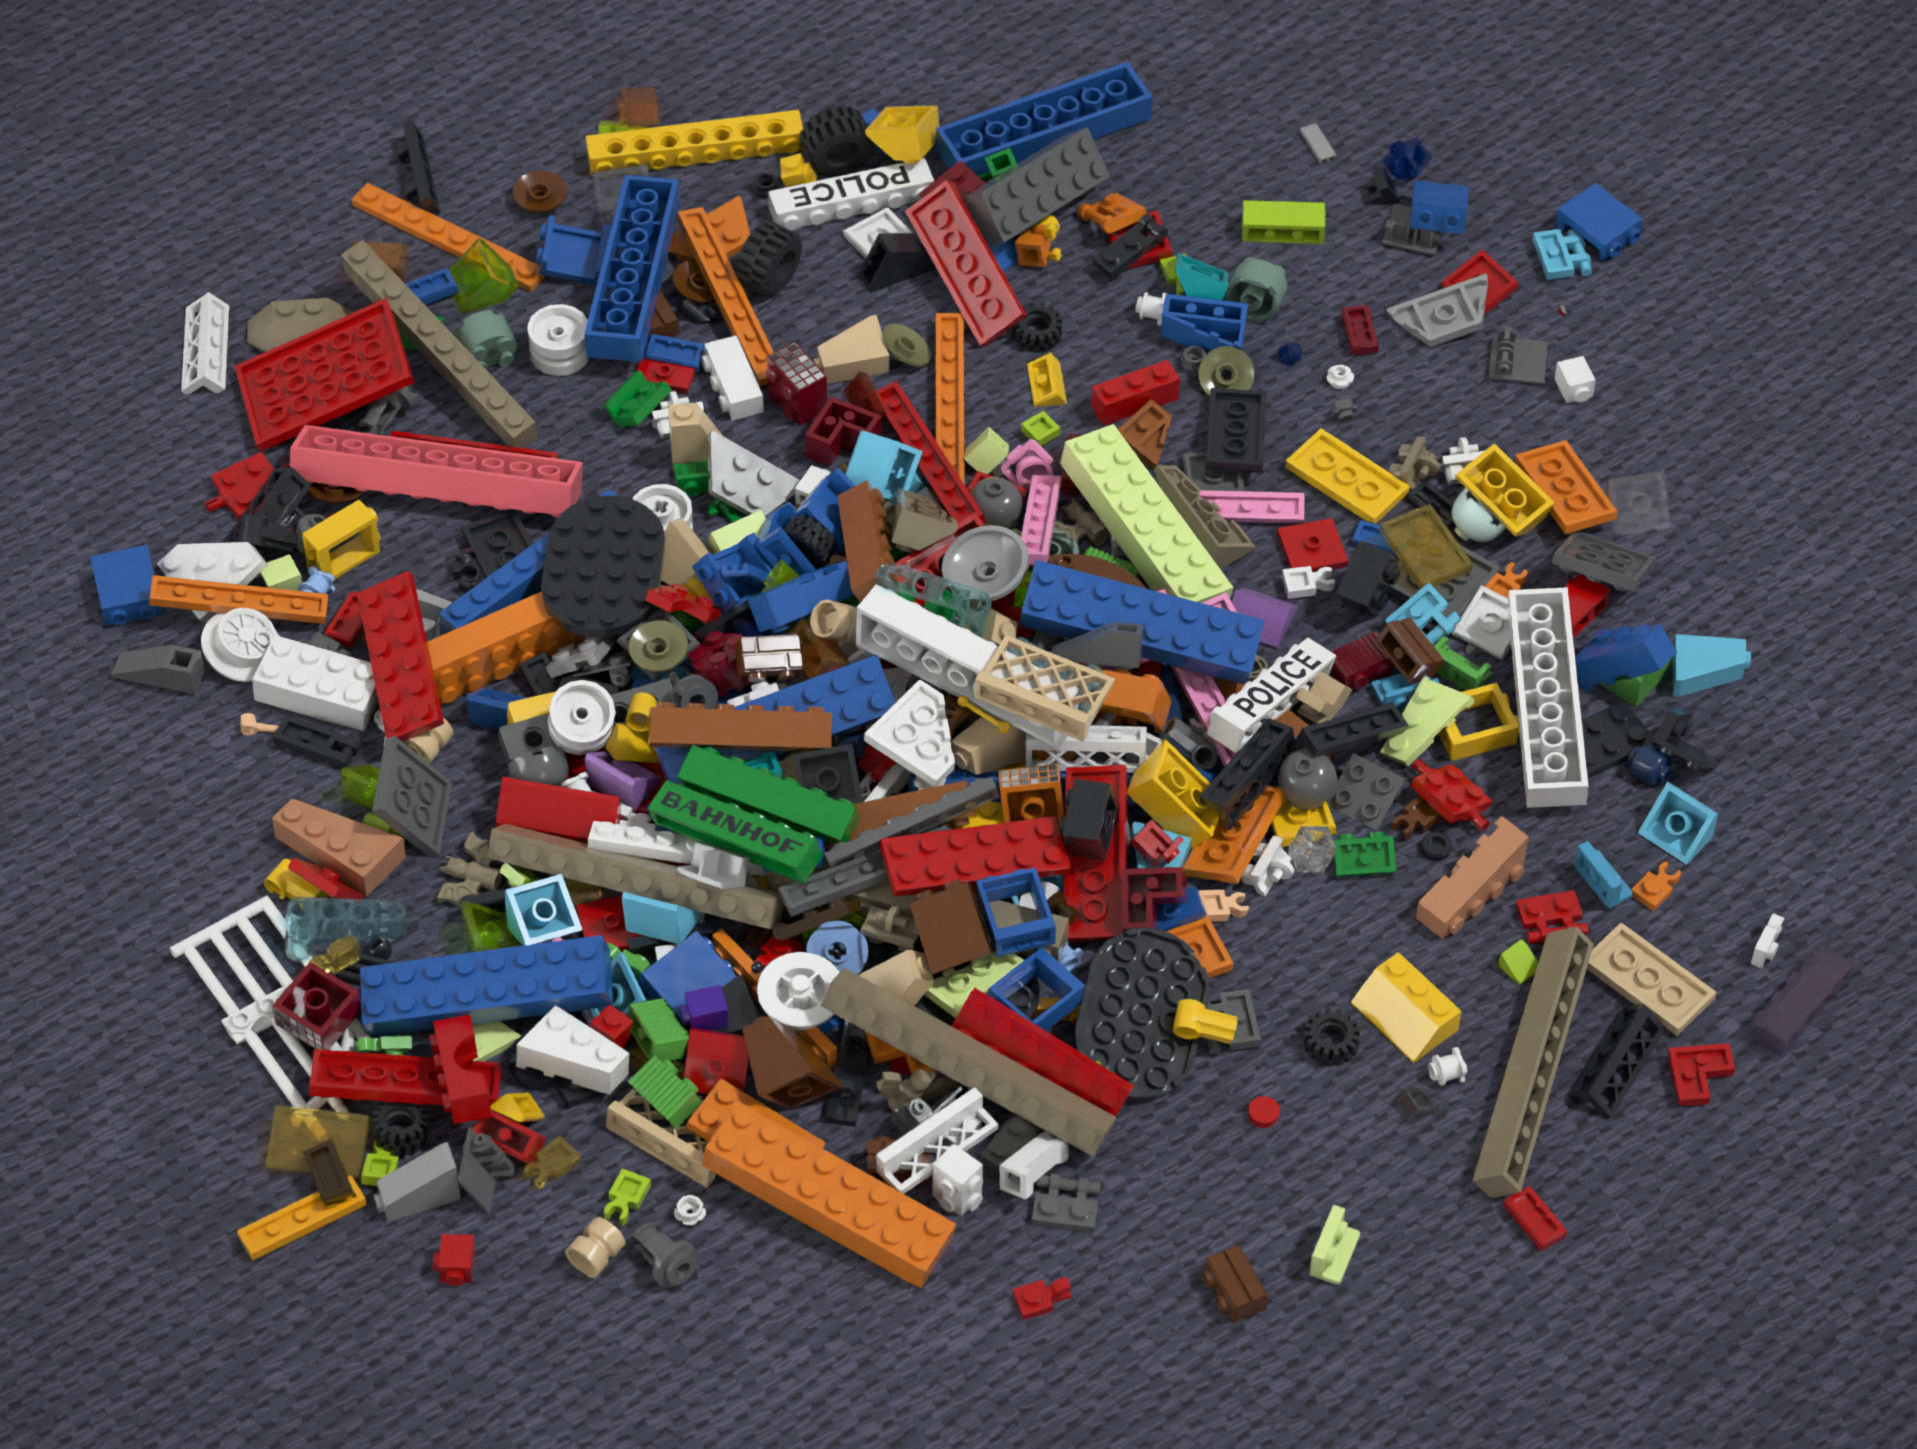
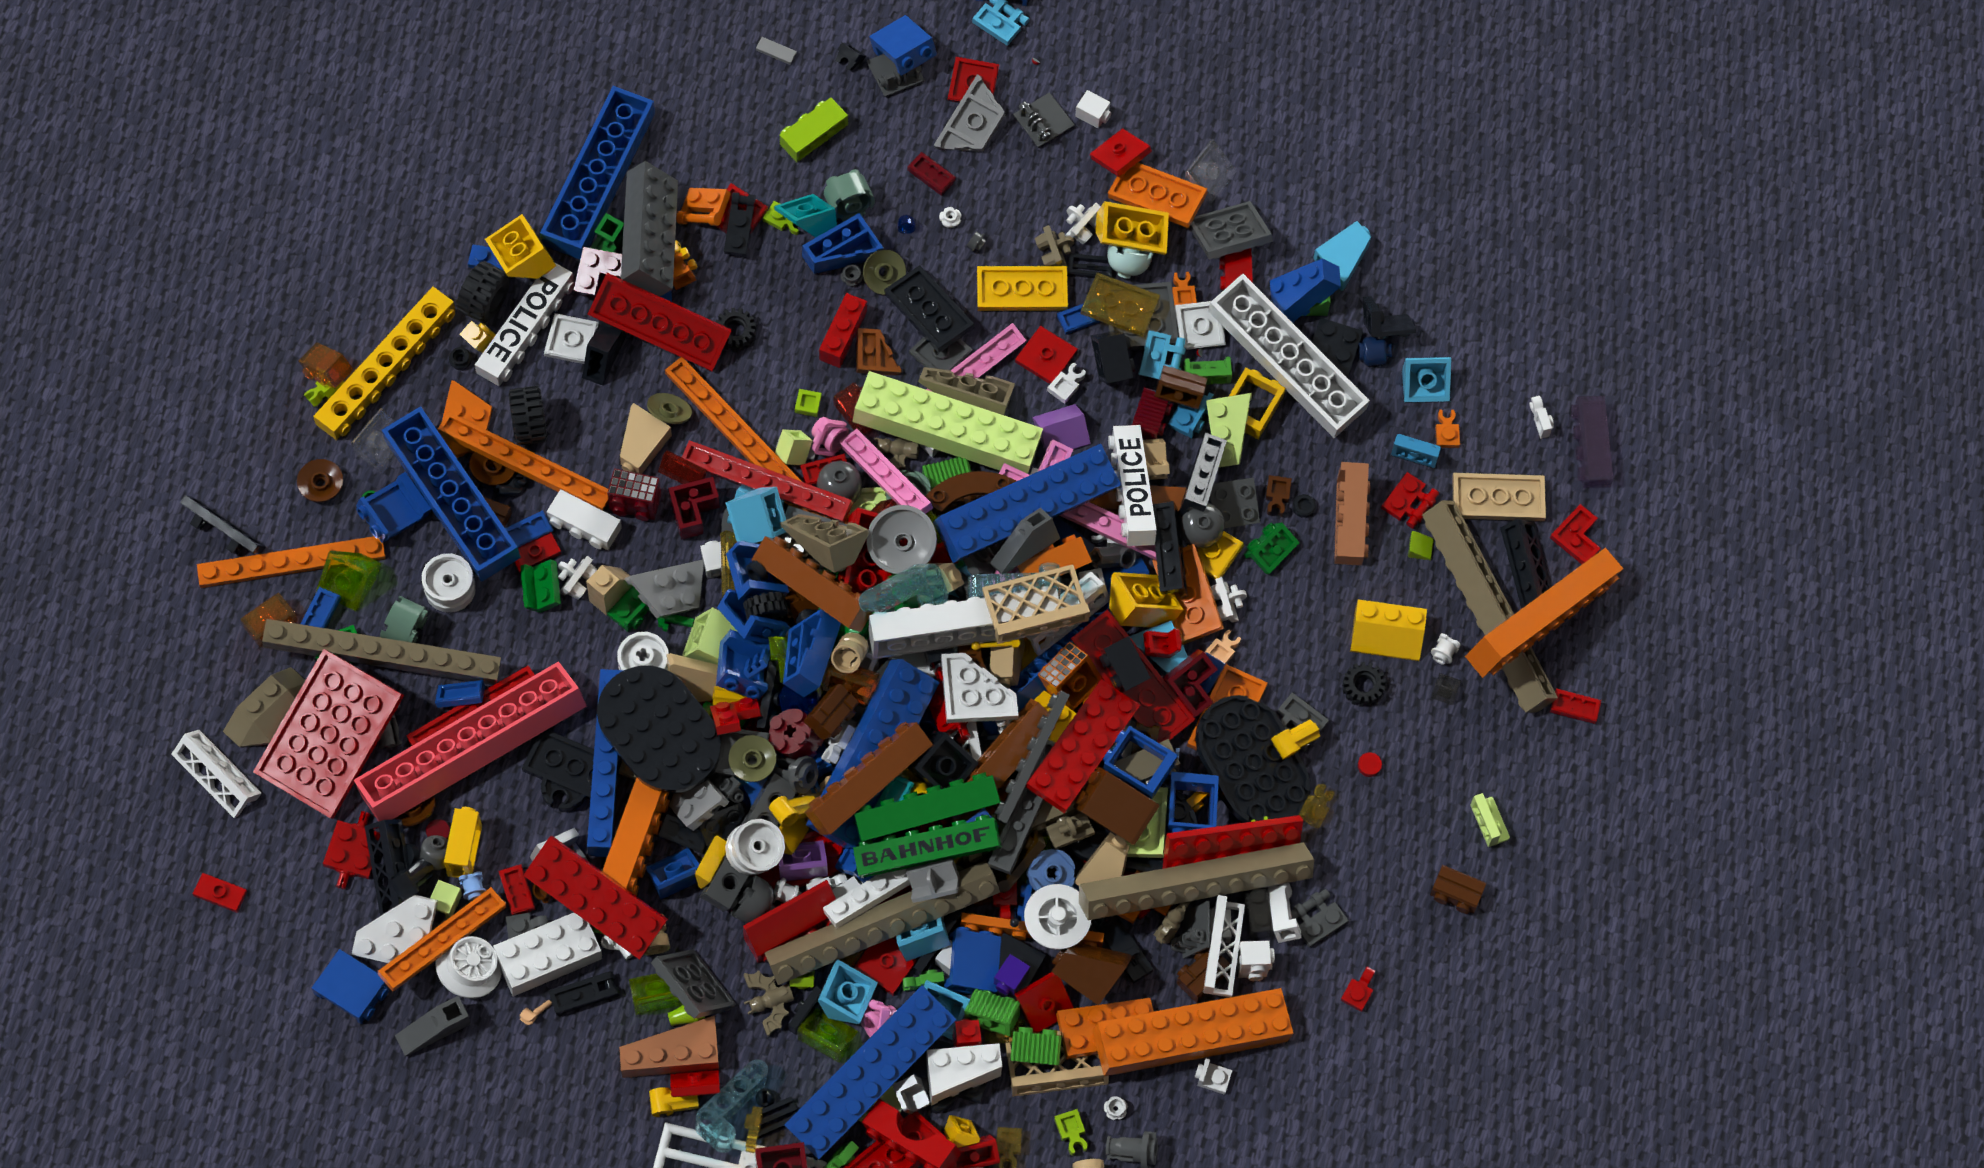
camera: 45 degrees left, 15 degrees up
(105, 437) = (219, 892): none -> red plate
(473, 432) = (460, 694): none -> blue tile
(502, 1038) = (911, 1094): none -> light grey panel
(812, 1256) = (1213, 1077): none -> white bracket
(831, 508) = (756, 571): none -> black tile
(1046, 381) = (776, 364): yellow slope -> none
(1151, 307) = (792, 257): white brick -> none
(1164, 1105) = (1315, 806): none -> clear yellow plate
(1312, 849) = (1244, 569): clear brick -> none
(1407, 158) = (848, 22): clear blue brick -> none
(1451, 793) = (1284, 464): red plate -> none
(1564, 431) = (1120, 152): none -> red plate
(1575, 1091) = (1544, 614): none -> orange brick

